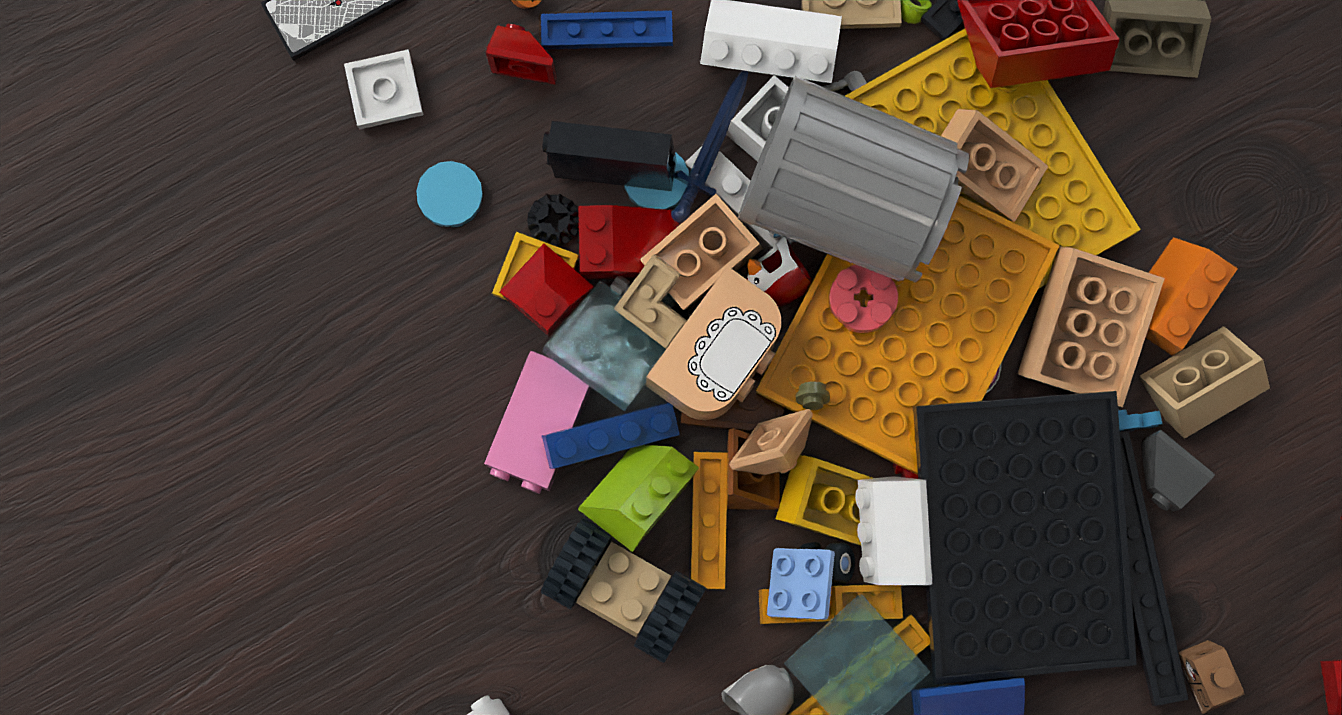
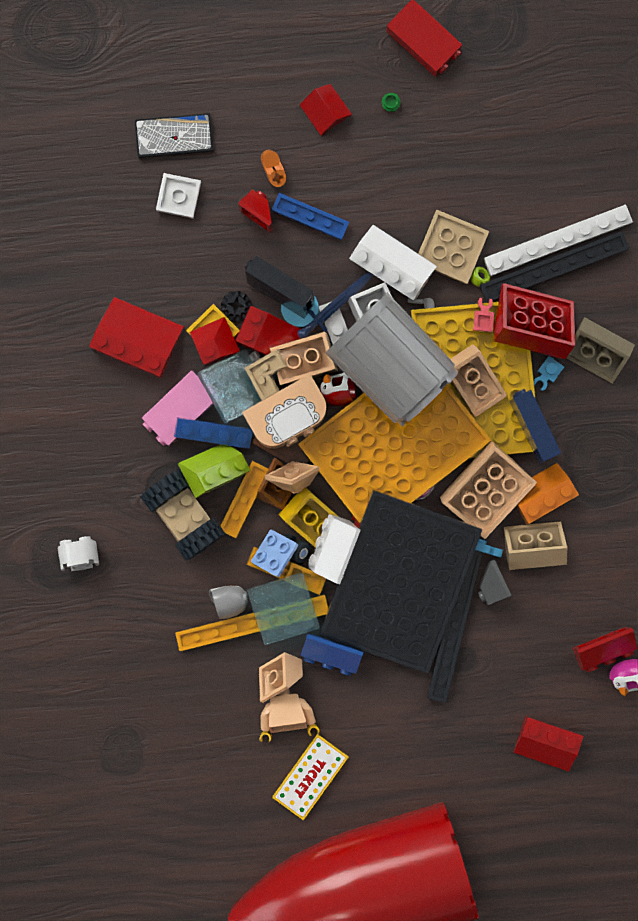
camera: 30 degrees right, 5 degrees up
(417, 341) = (136, 337): none -> red slope
(449, 194) = (188, 267): medium azure tile -> none
(812, 395) = (324, 460): olive plate -> none
(849, 311) = (365, 426): coral plate -> none
(954, 64) = (483, 319): none -> coral plate
(1092, 103) = (549, 371): none -> dark azure plate
(1118, 191) = (534, 426): none -> dark blue brick
(1210, 675) = (462, 696): medium nougat torso -> none

